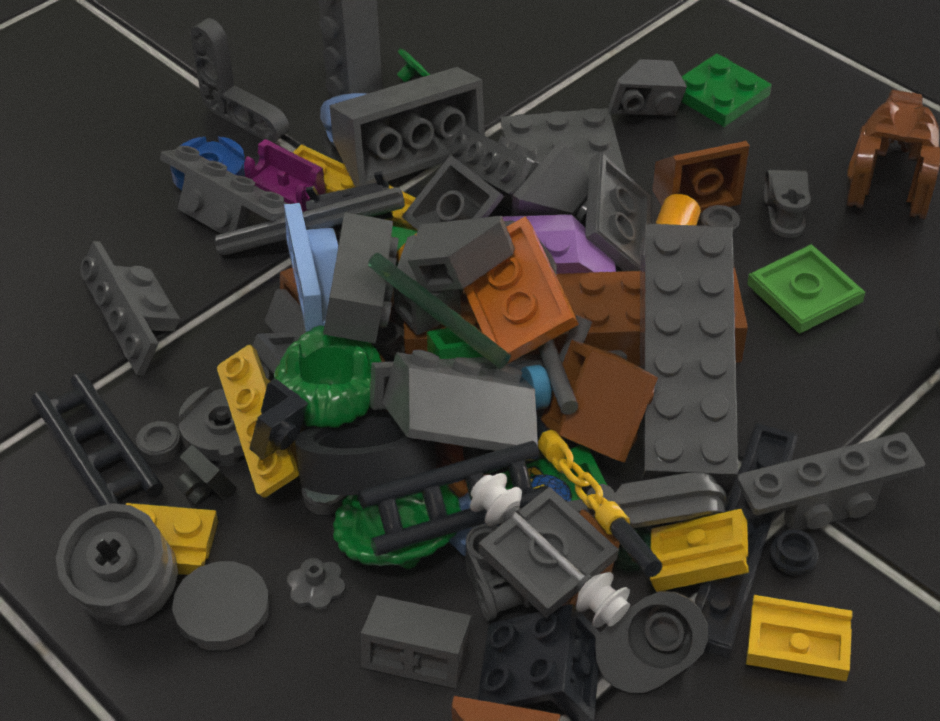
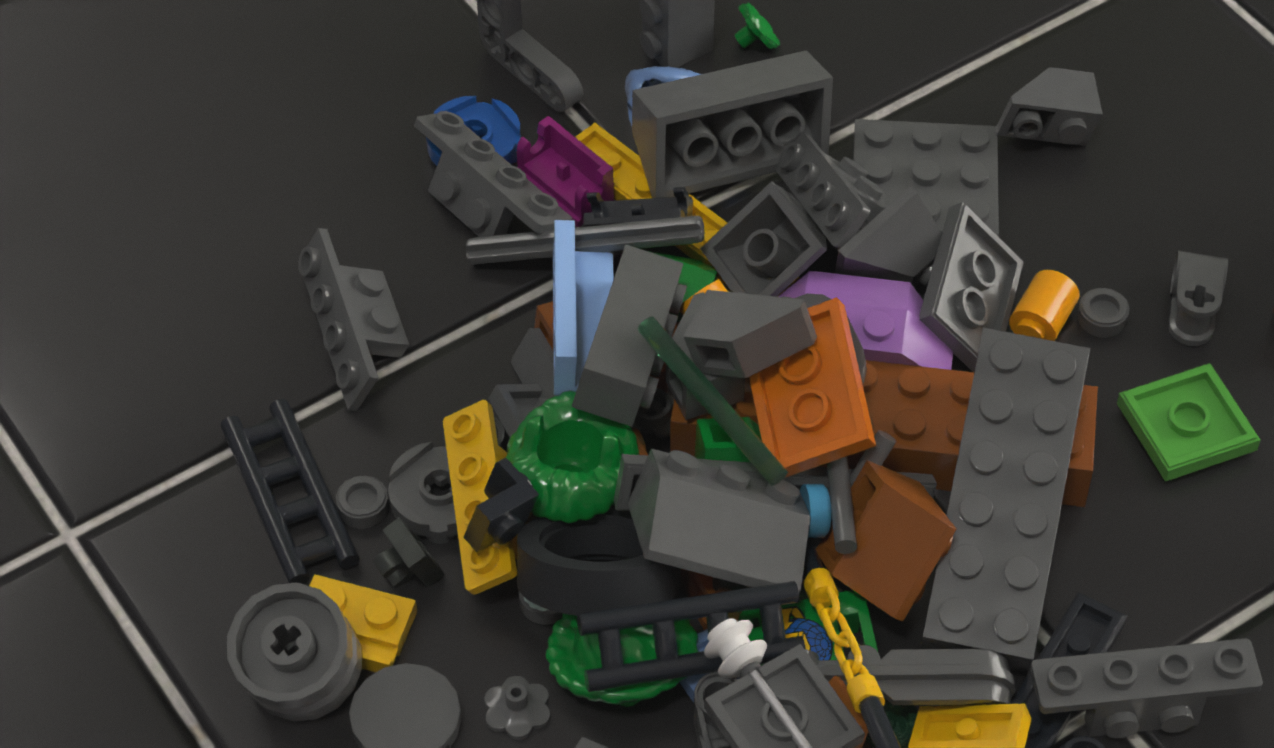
camera: 10 degrees right, 5 degrees up
(706, 175) = (1093, 249): dark orange slope -> none
(723, 89) = (1155, 117): green plate -> none

